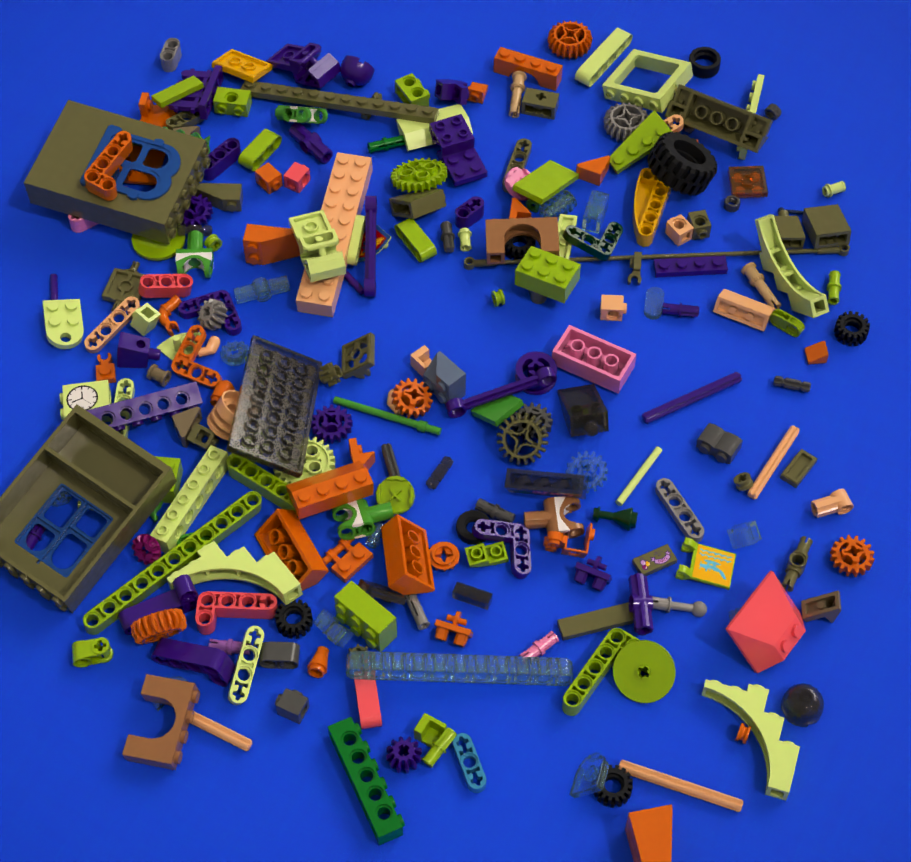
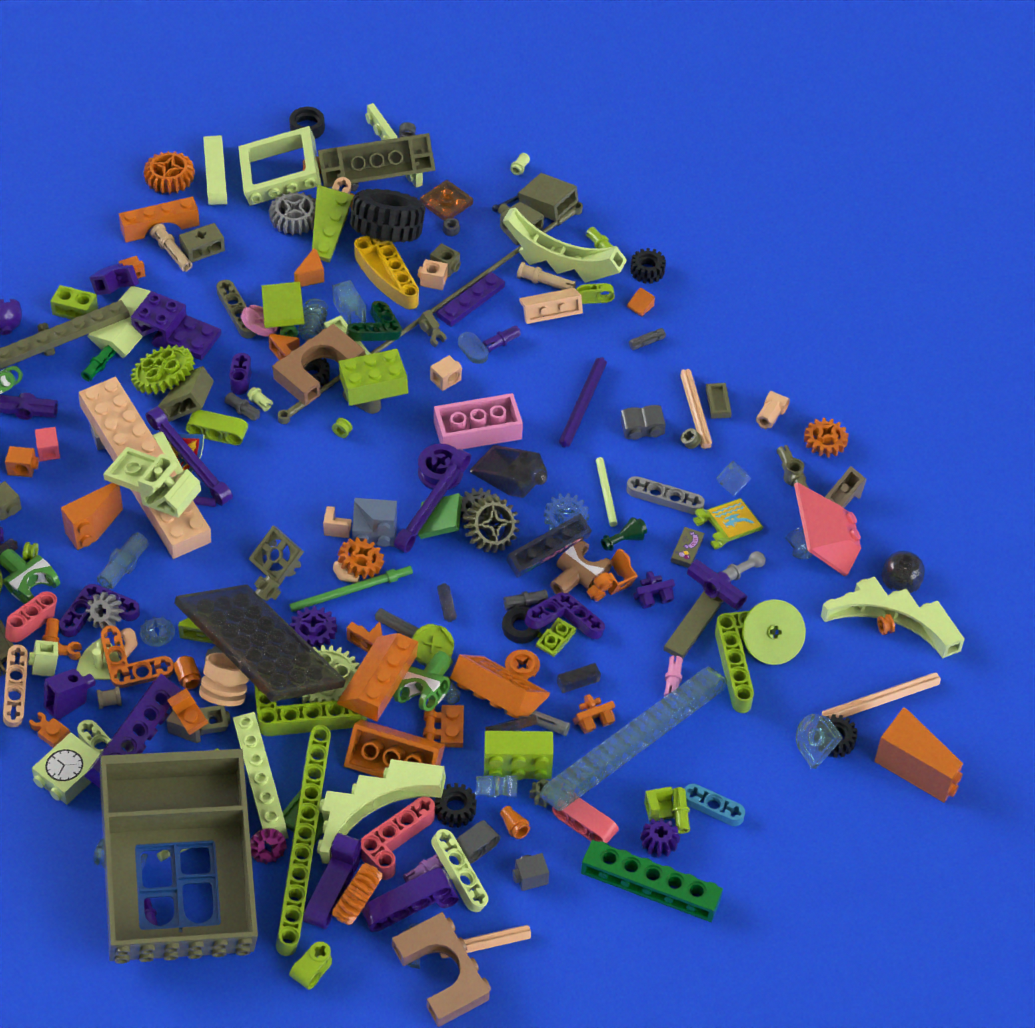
camera: 45 degrees left, 5 degrees down
(187, 417) = (188, 711): none -> orange slope

